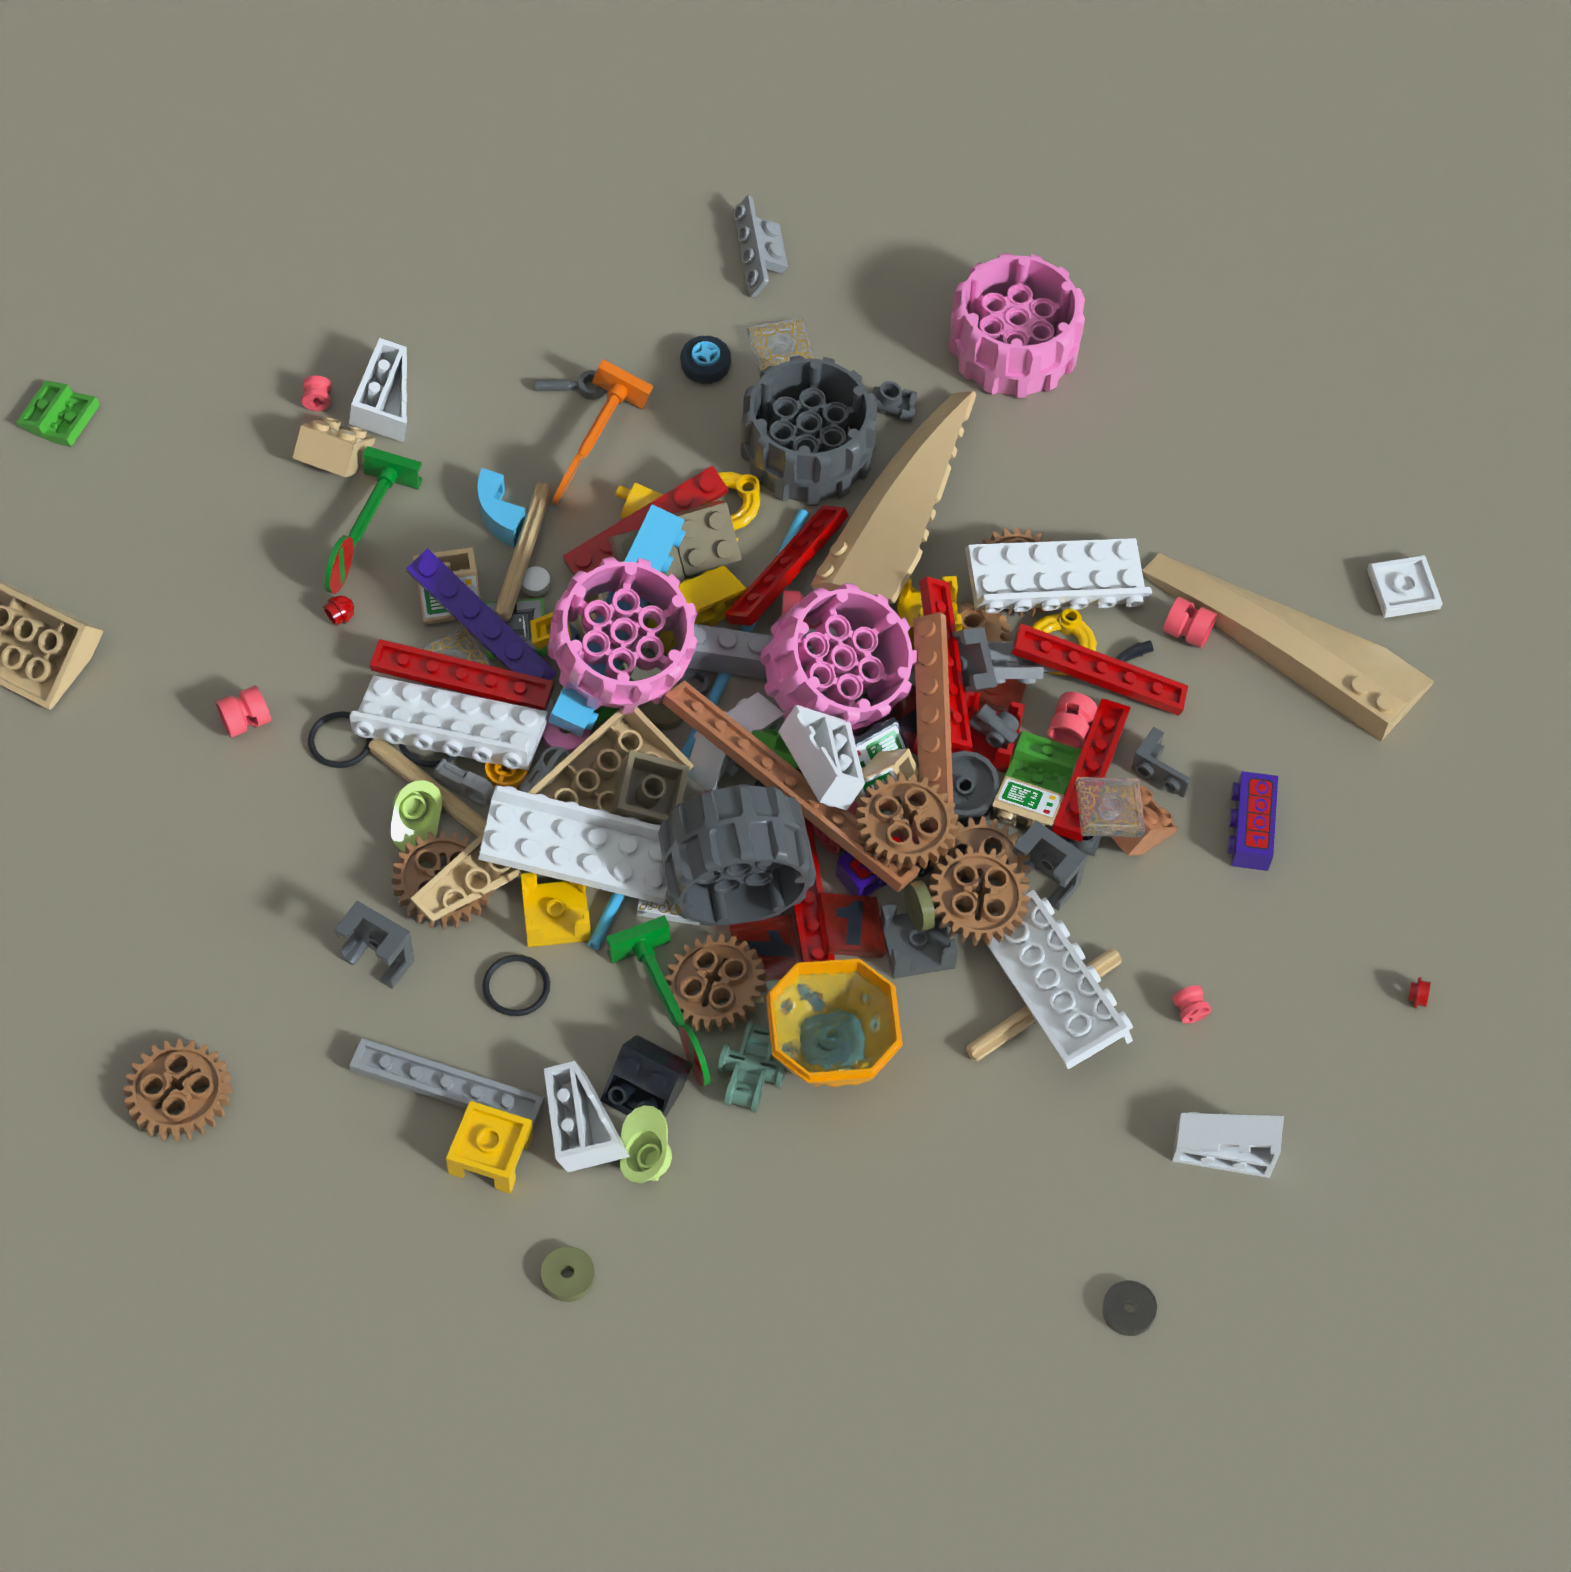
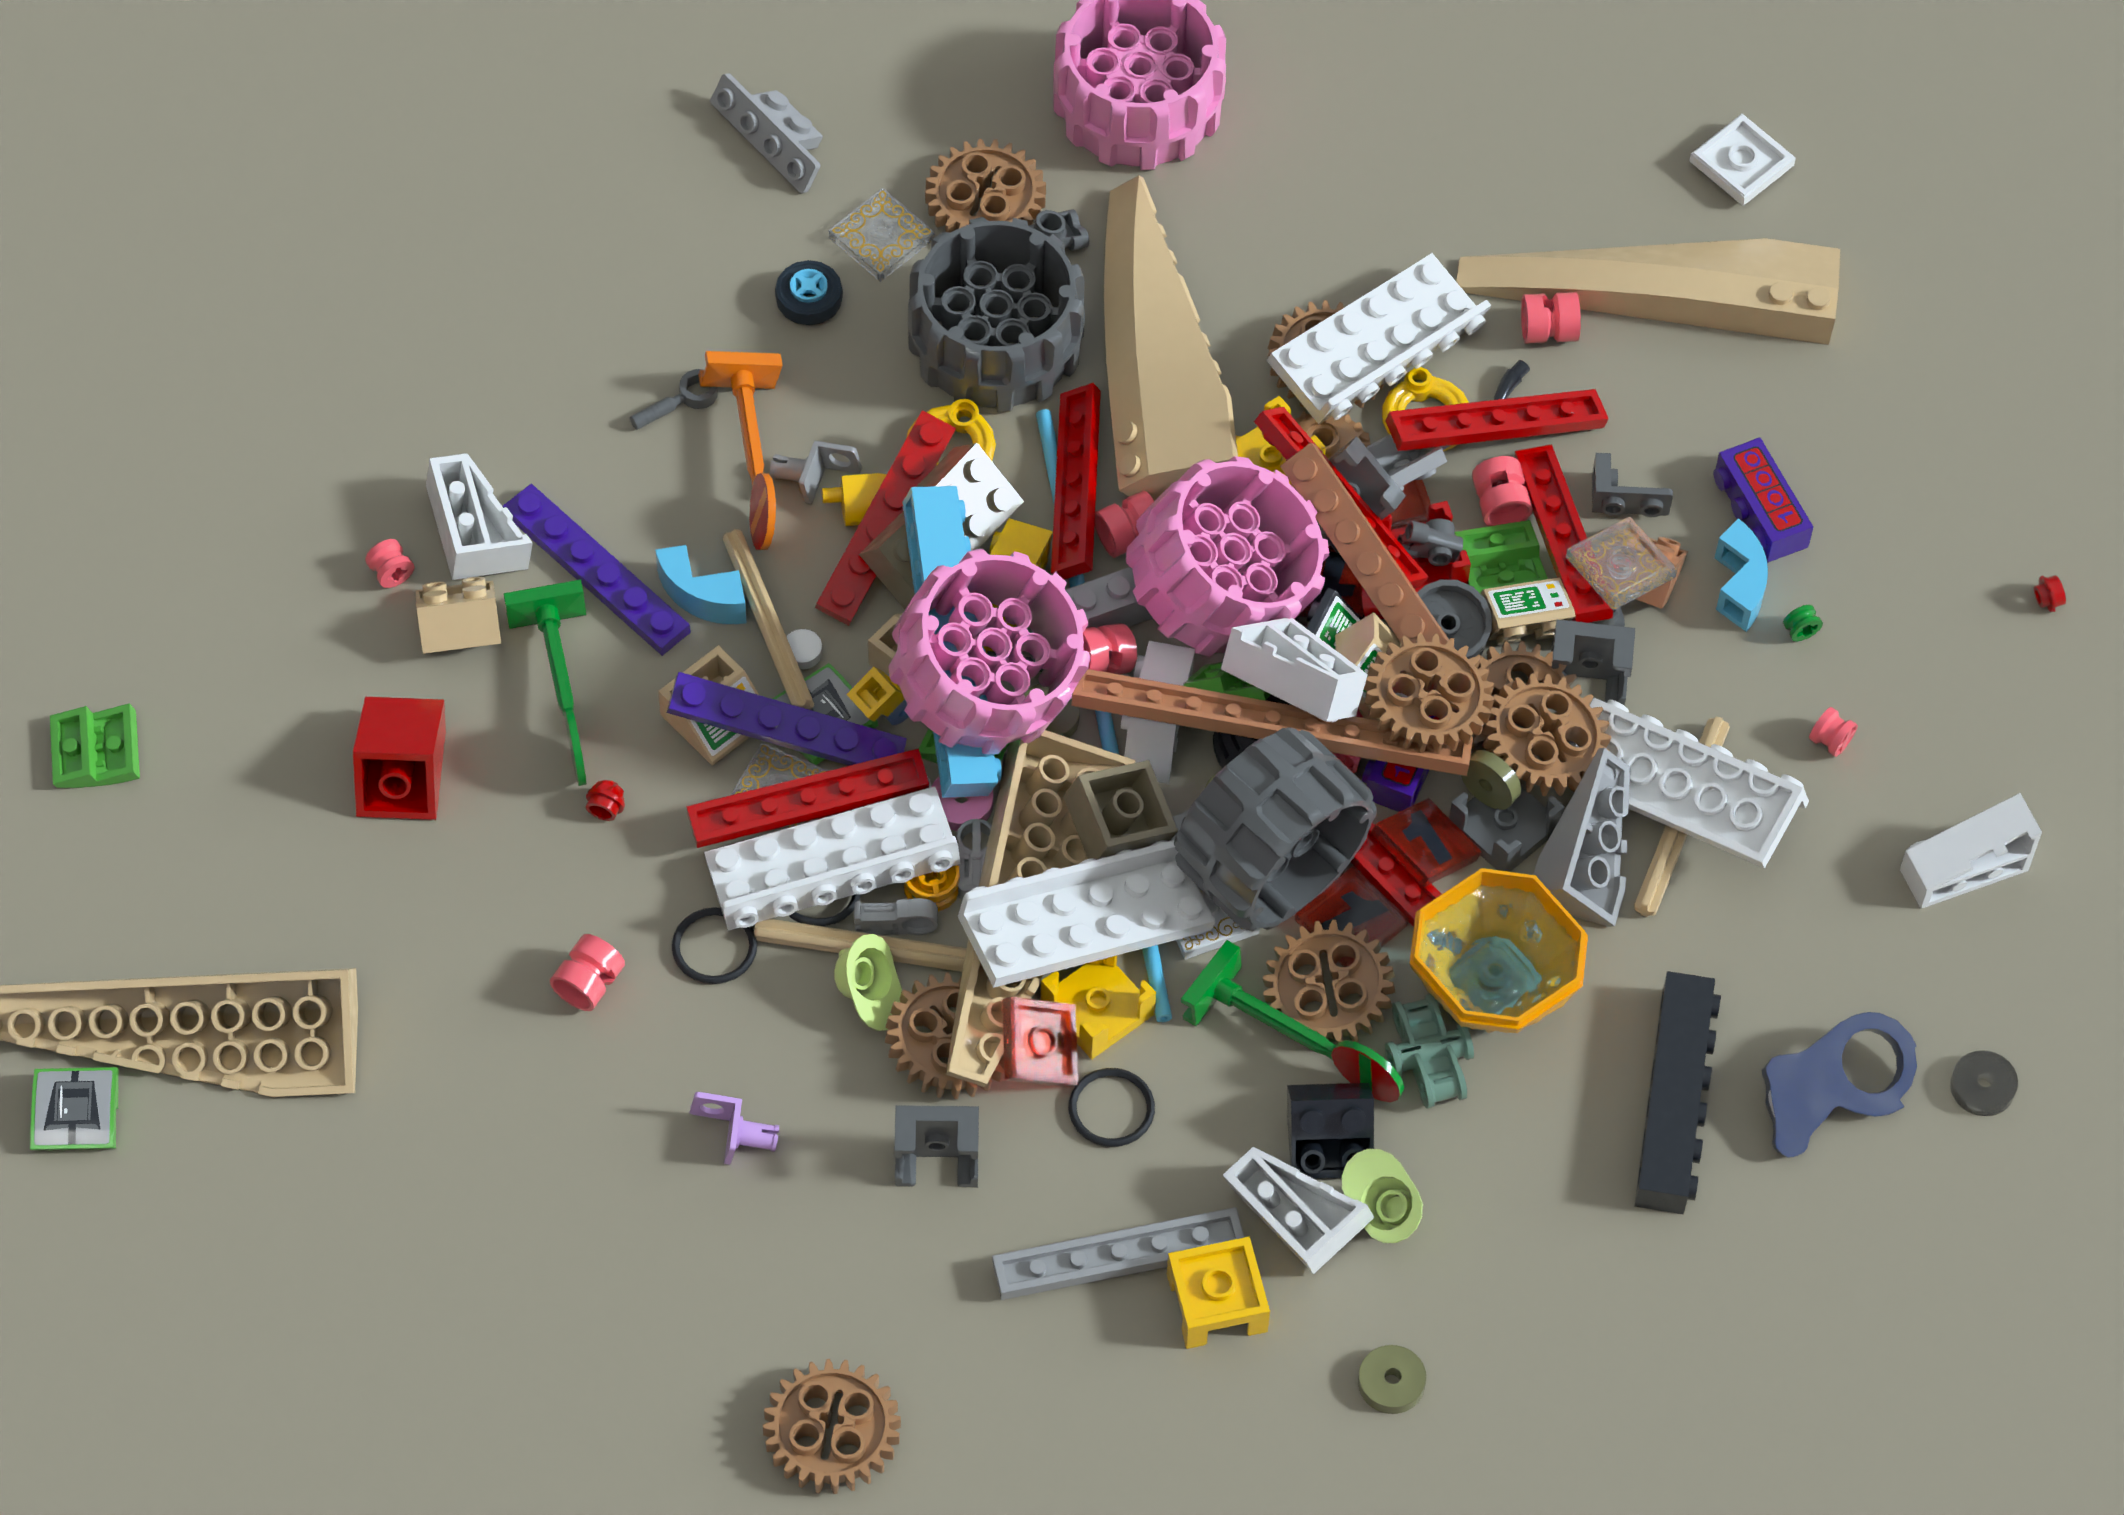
camera: 30 degrees left, 0 degrees up
(230, 514) = (399, 757): none -> red slope
(262, 863) = (739, 1131): none -> lavender bracket
(444, 464) = (597, 570): none -> dark purple plate
(492, 914) = (1040, 1042): none -> clear red tile
(623, 471) = (810, 470): none -> light grey bracket
(719, 681) = (1110, 648): none -> coral wheel
(870, 349) = (956, 181): none -> medium nougat gear
(900, 1190) = (1675, 1093): none -> black brick
(953, 992) = (1586, 846): none -> light grey wedge
(1001, 1237) = (1811, 1083): none -> dark blue animal
(1198, 875) = (1743, 593): none -> medium azure brick
(1223, 918) = (1802, 623): none -> green bush

